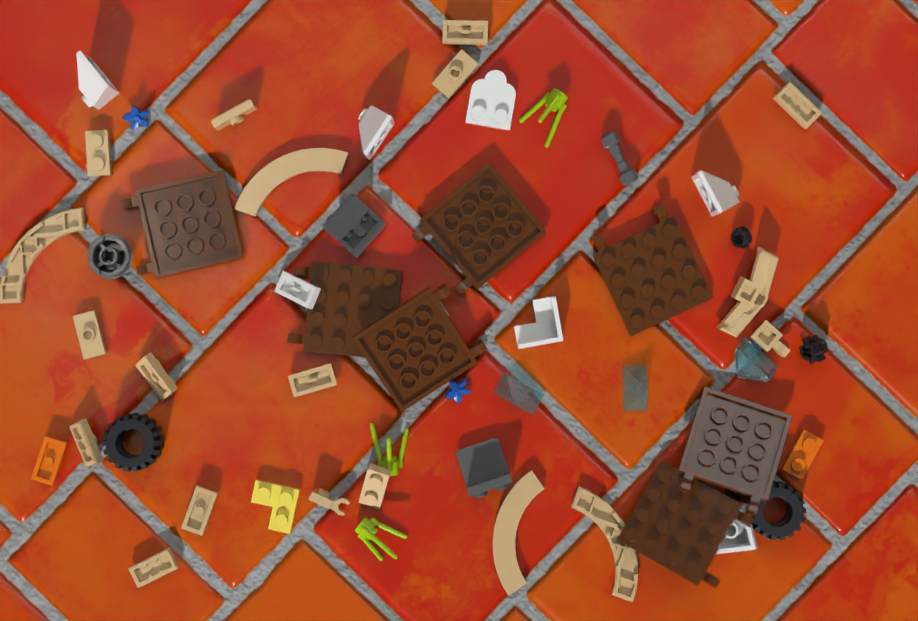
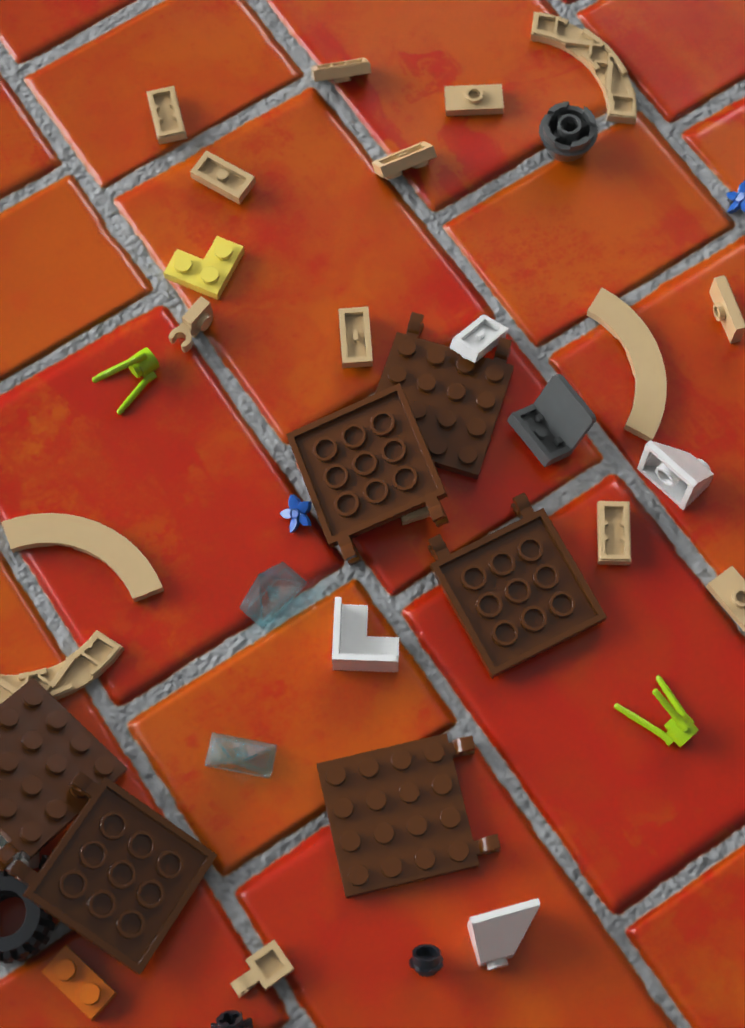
camera: 105 degrees right, 20 degrees down
(49, 460) = (329, 29): orange plate -> none
(98, 153) = (702, 150): tan plate -> none
(116, 449) = (328, 98): black tyre -> none
(187, 224) = (592, 230): reddish brown plate -> none
(374, 486) = (196, 381): tan plate -> none
(390, 461) = (221, 408): lime plant -> none
(424, 168) = (613, 532): none -> tan plate
(484, 467) = (182, 525): dark grey bracket -> none
(491, 102) = (692, 642): white plate -> none
(627, 174) = (553, 809): dark grey piece -> none
(750, 293) = (338, 954): tan plate -> none
(752, 362) = (235, 937): clear light blue slope -> none

